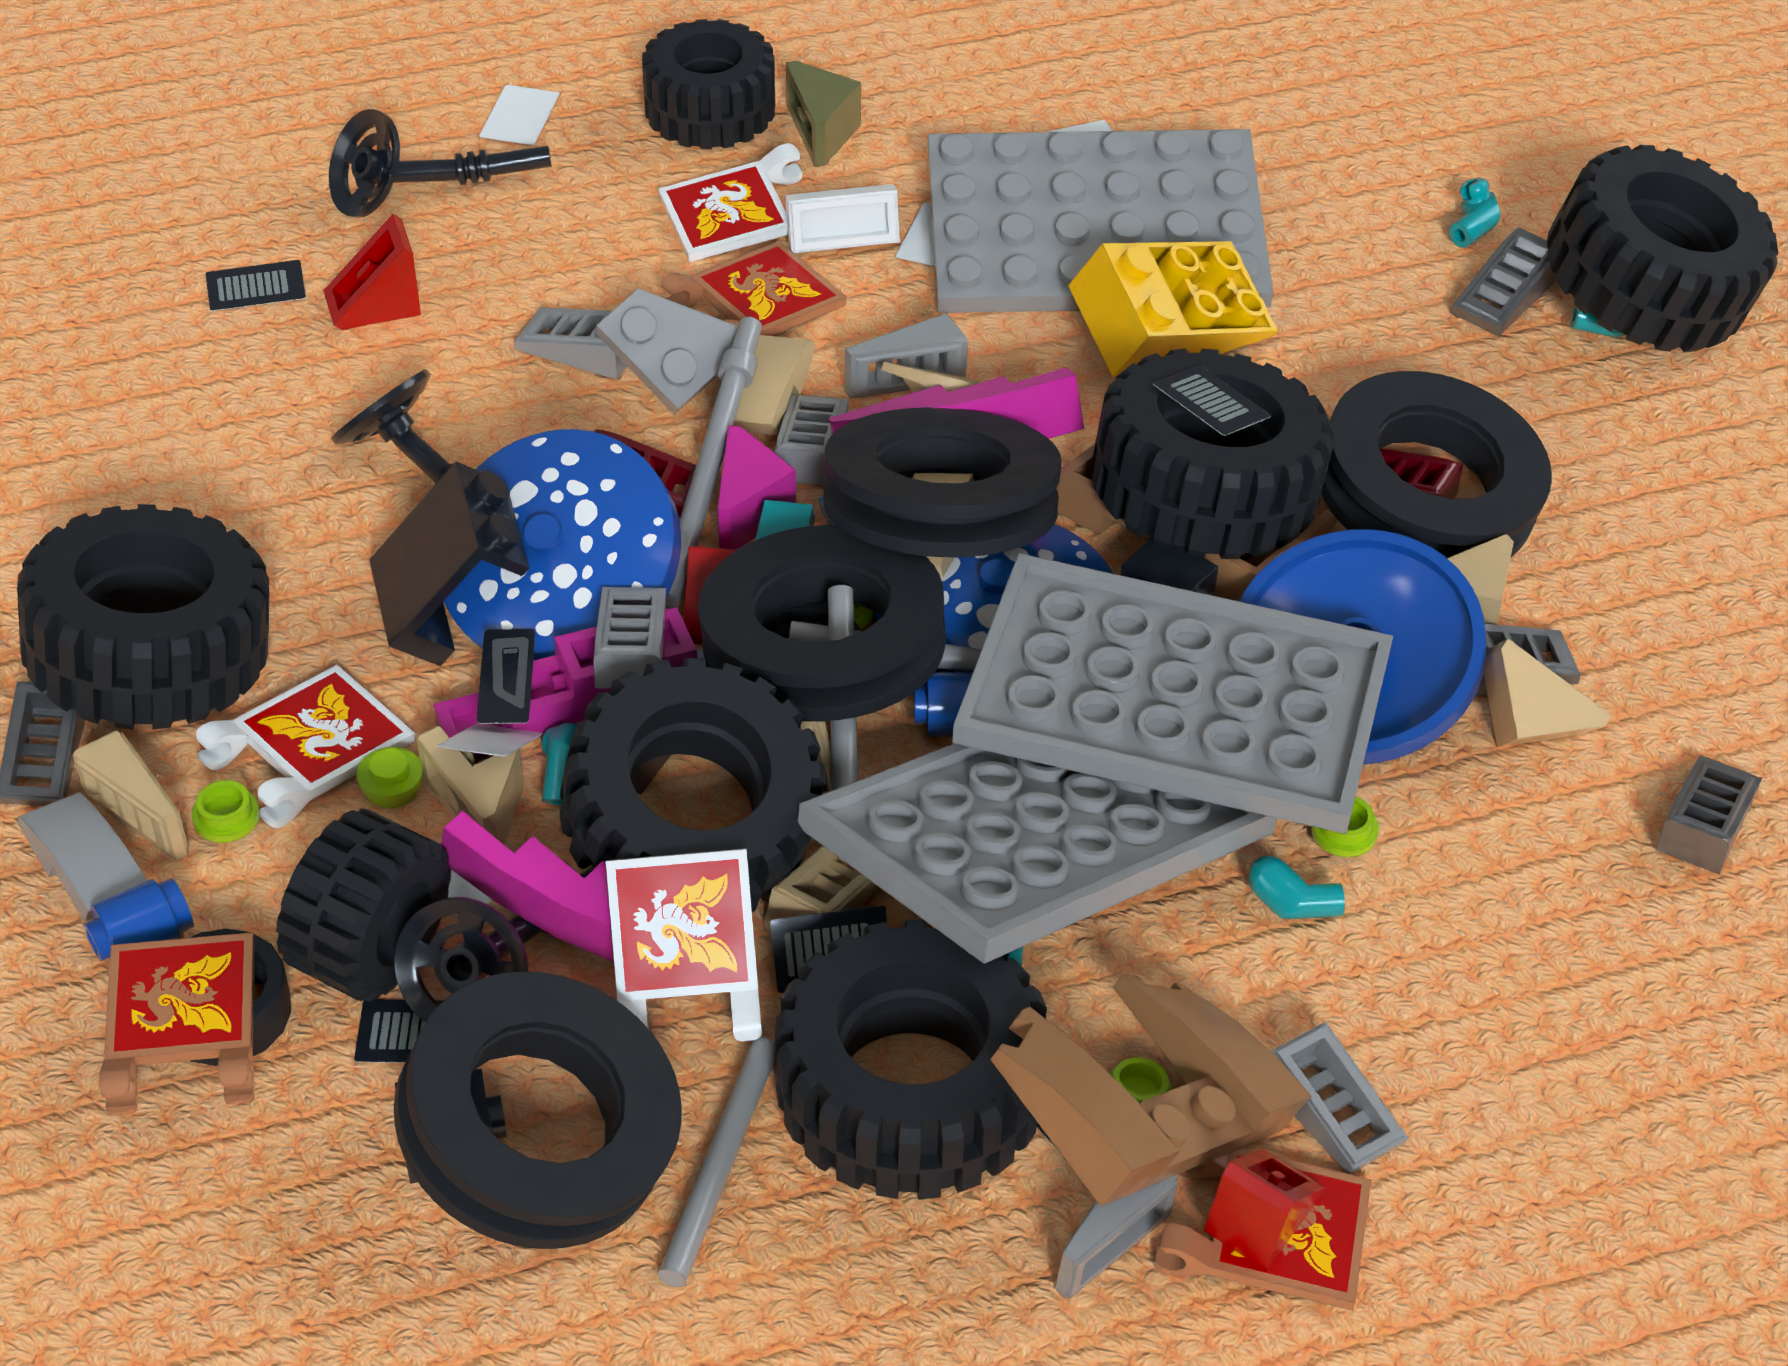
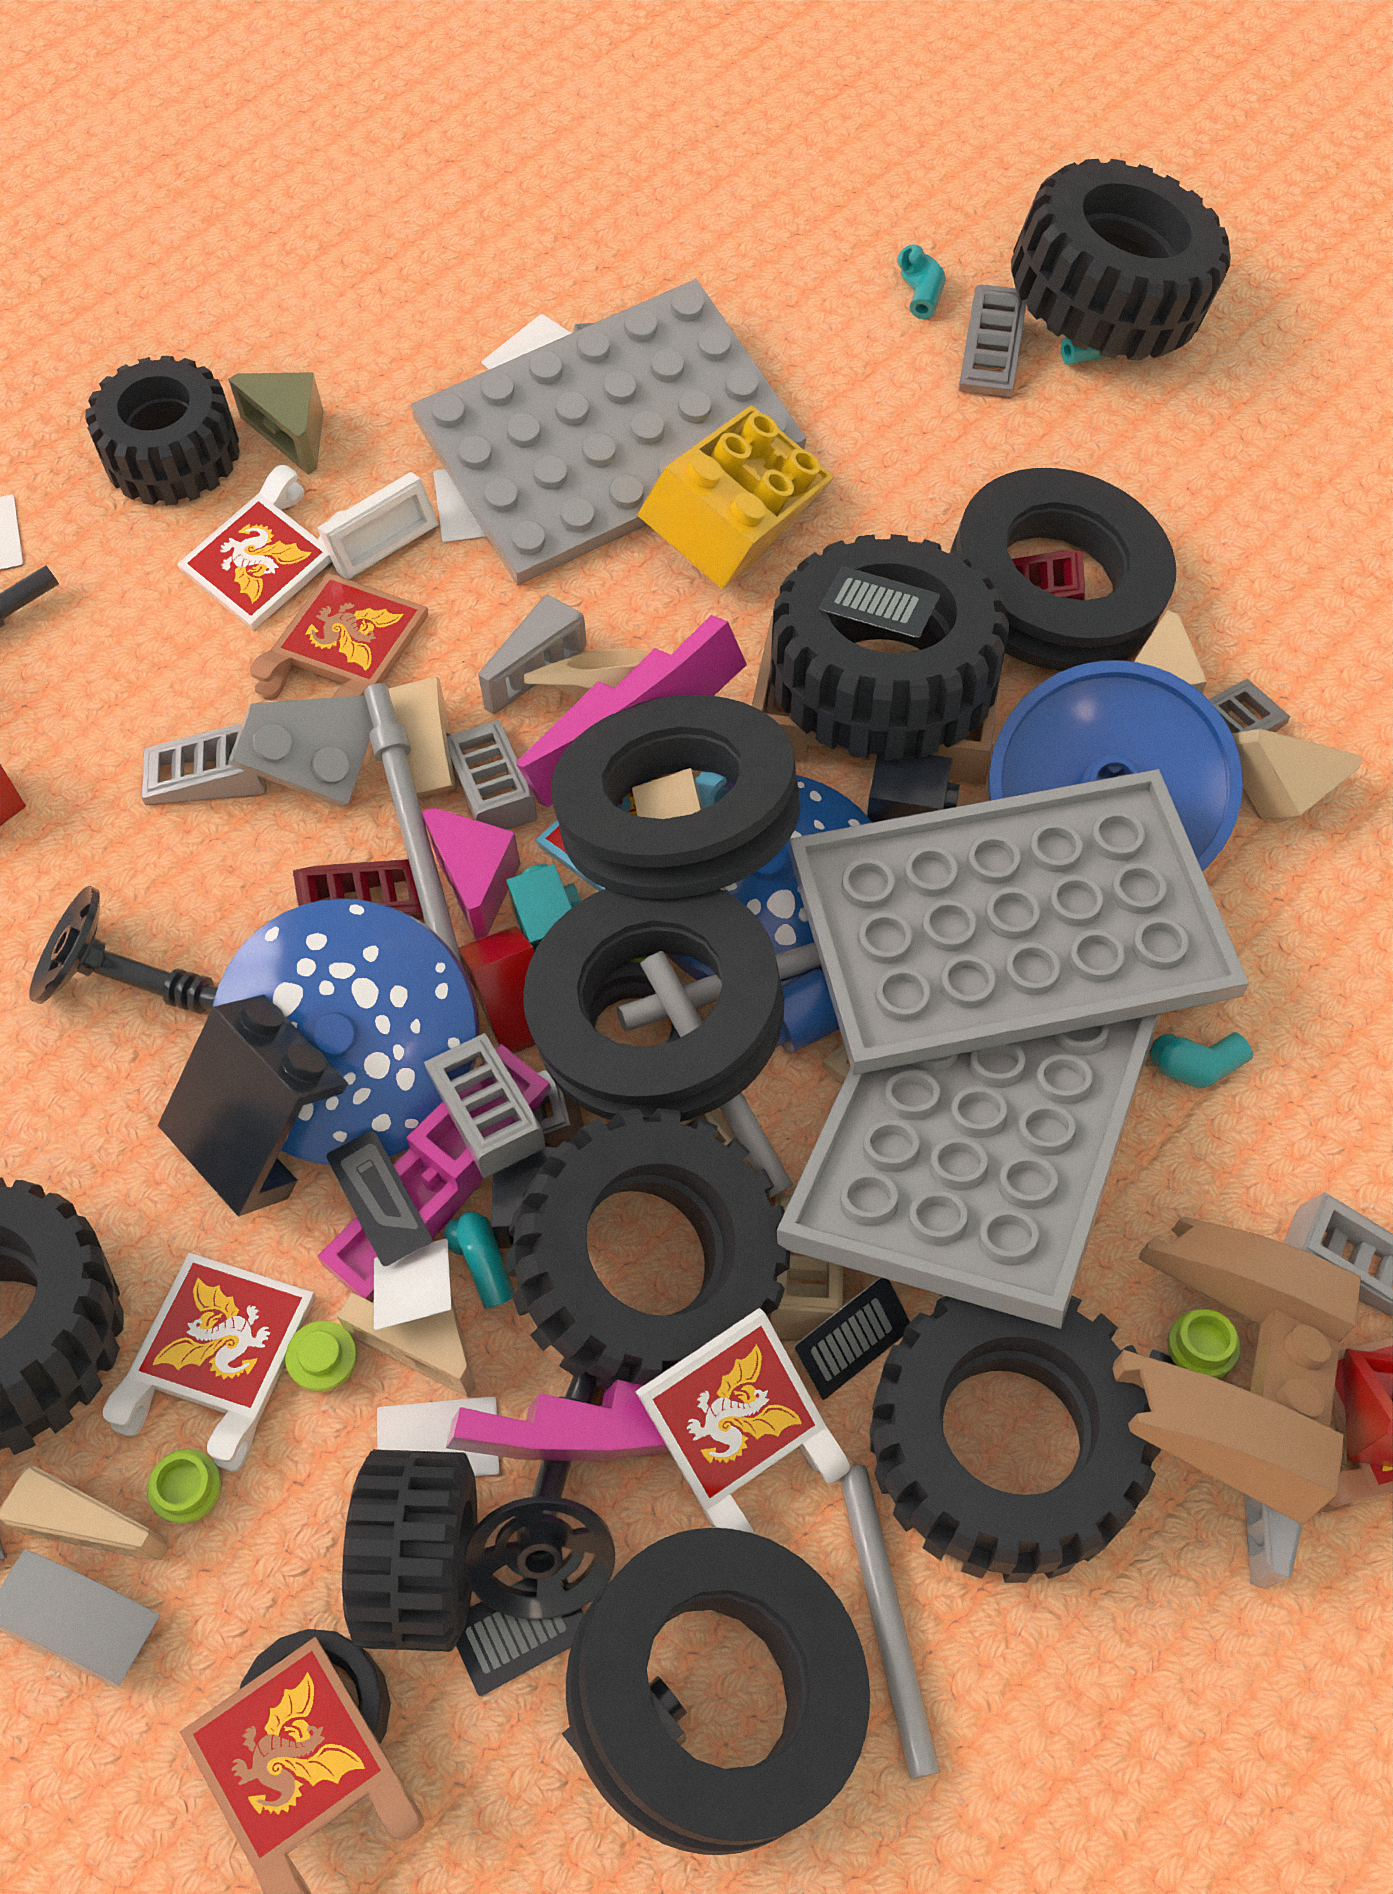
camera: 25 degrees left, 15 degrees up
(138, 915) = (177, 1670): blue brick -> none

